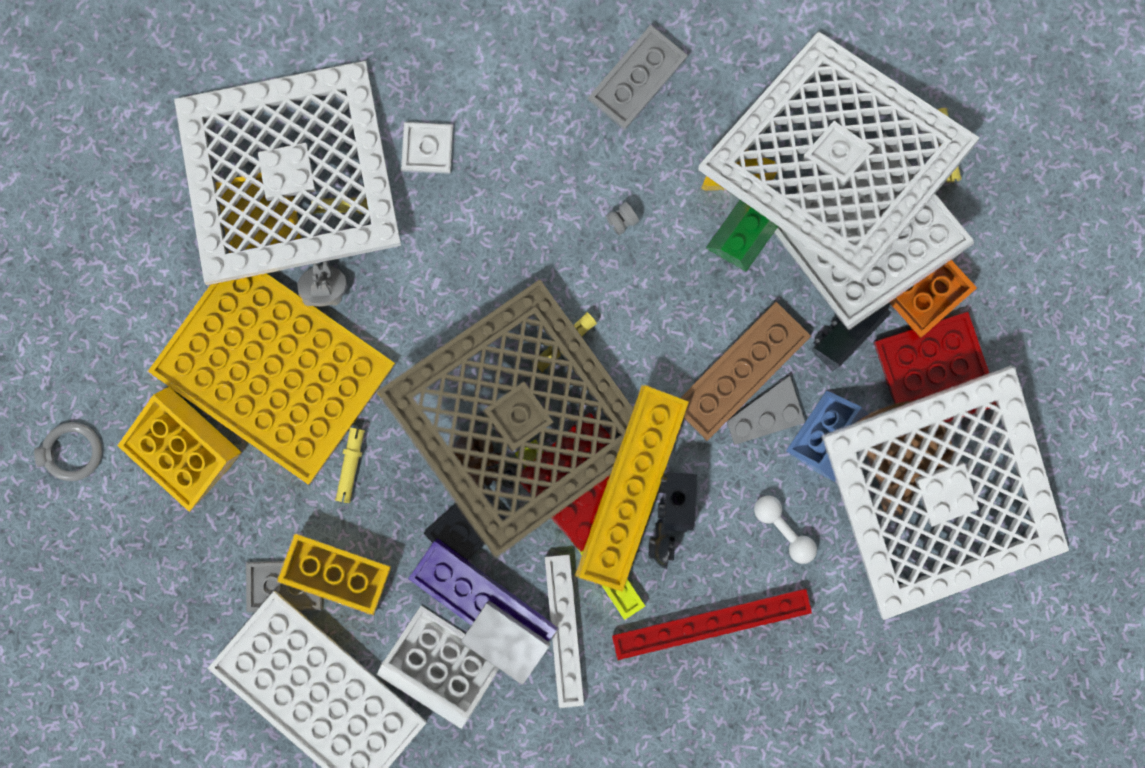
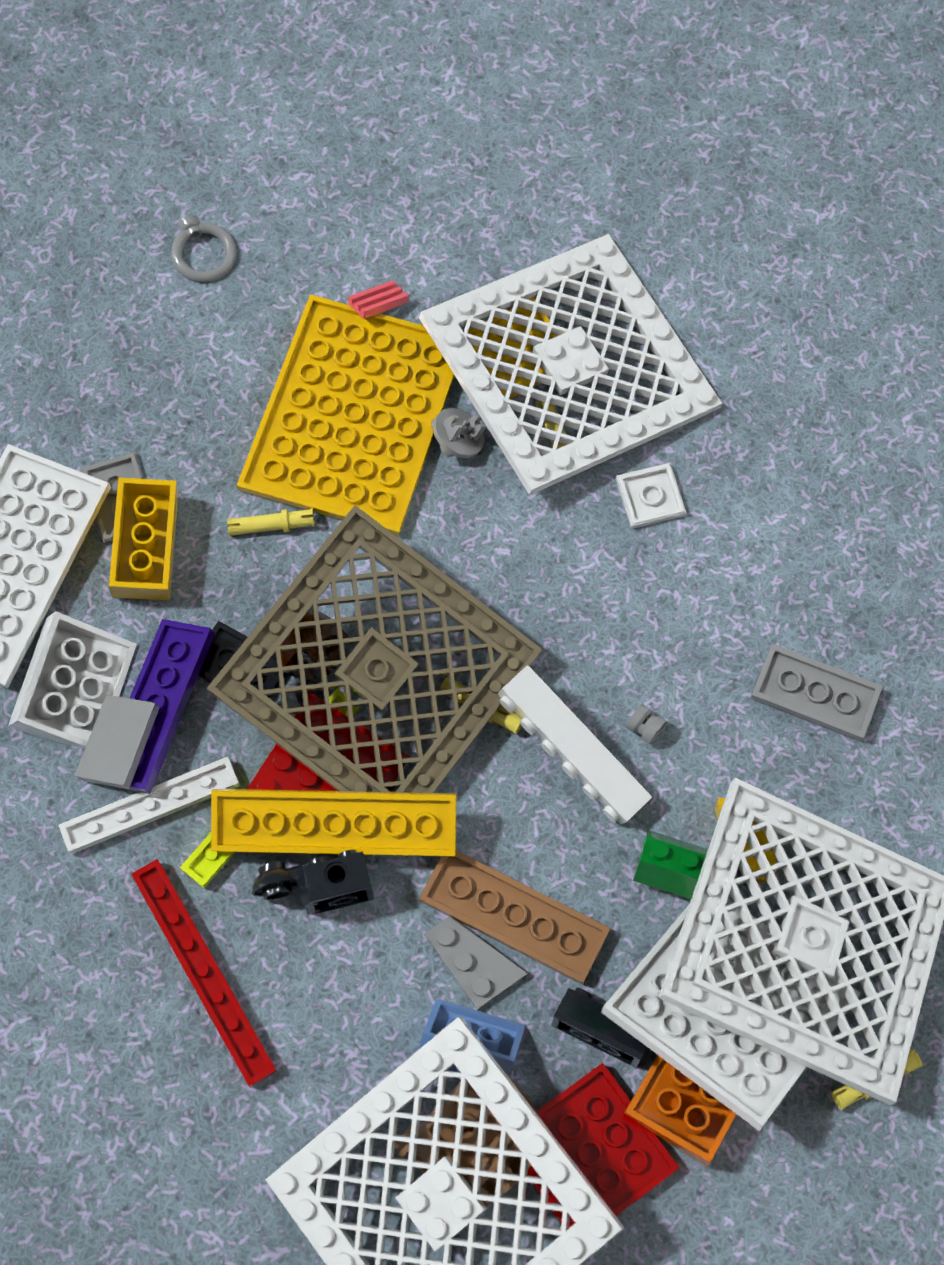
camera: 75 degrees right, 15 degrees down
(169, 316) = (378, 299): none -> coral tile
(178, 448) = (238, 349): yellow slope -> none
(626, 280) = (574, 746): none -> white brick
(801, 548) = (323, 1050): white piece -> none

